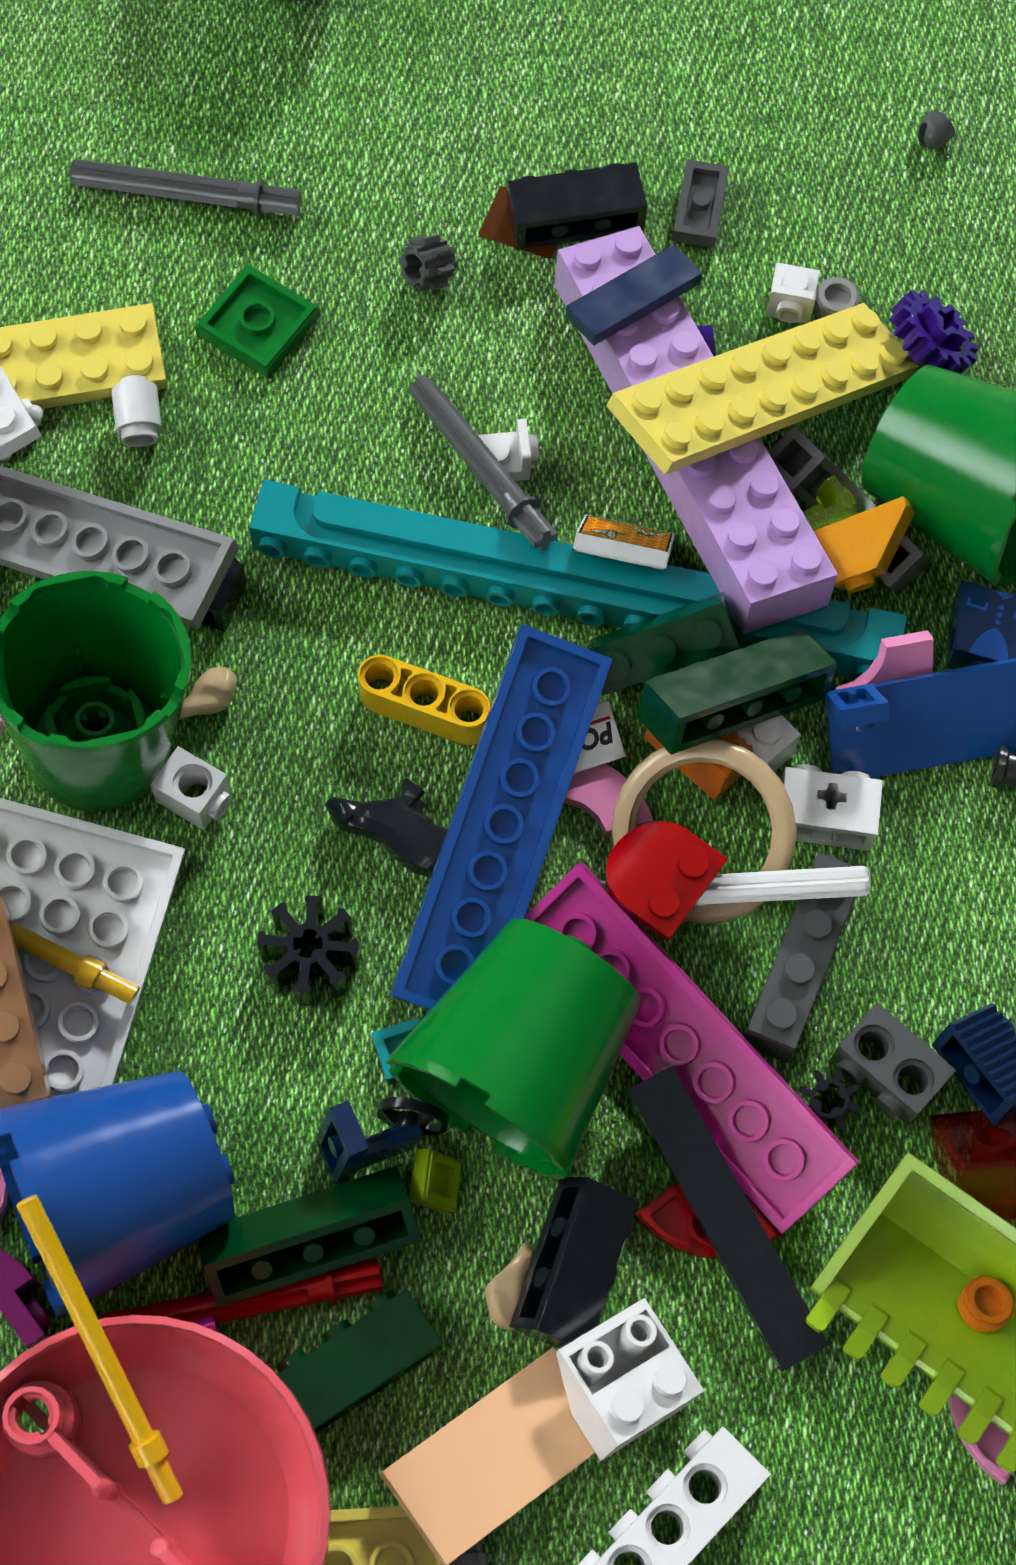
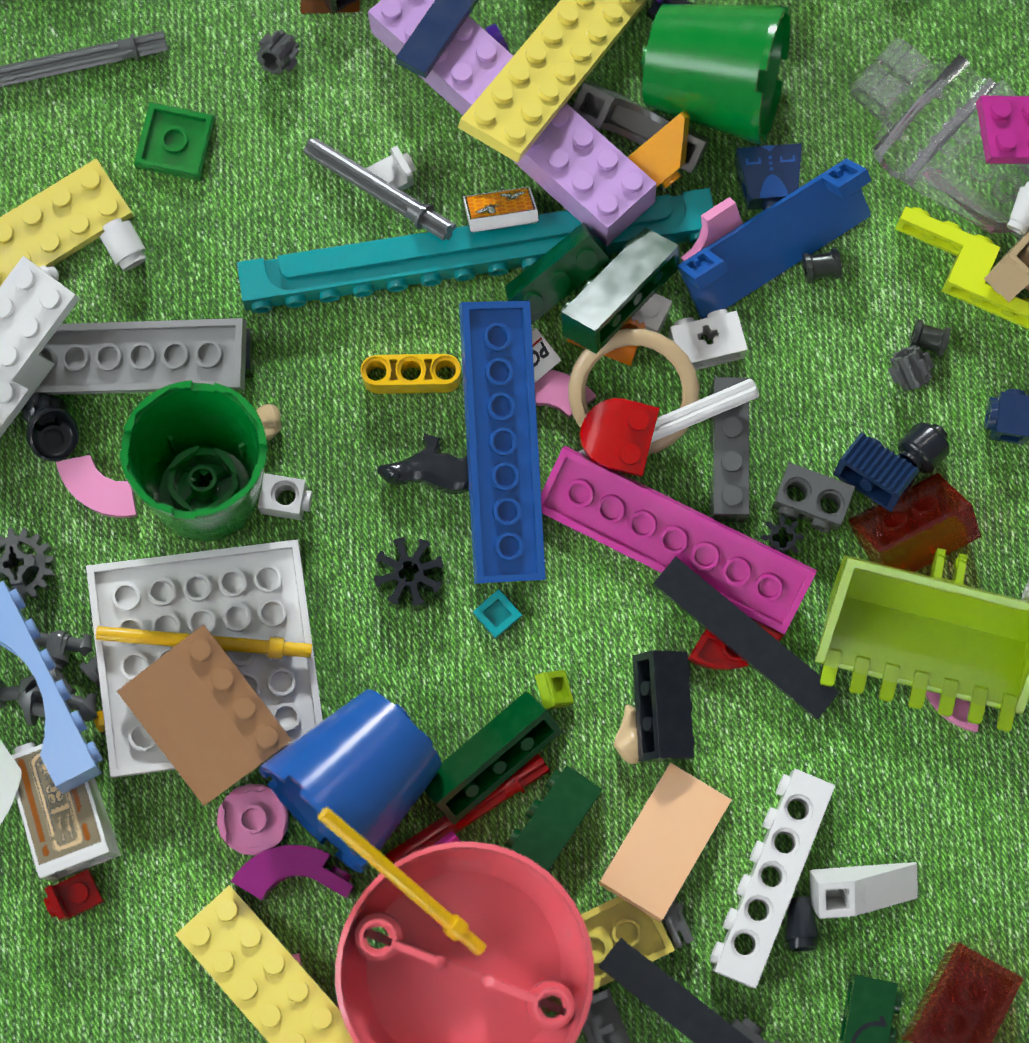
camera: 20 degrees left, 10 degrees up
(348, 1150) = (489, 691): dark blue piece -> none
(522, 1045) = (578, 583): green cone -> none
(625, 1379) = (724, 764): white slope -> none
(834, 504) = (635, 132): clear neon green bracket -> none
(986, 1304) = (926, 627): orange tile -> none

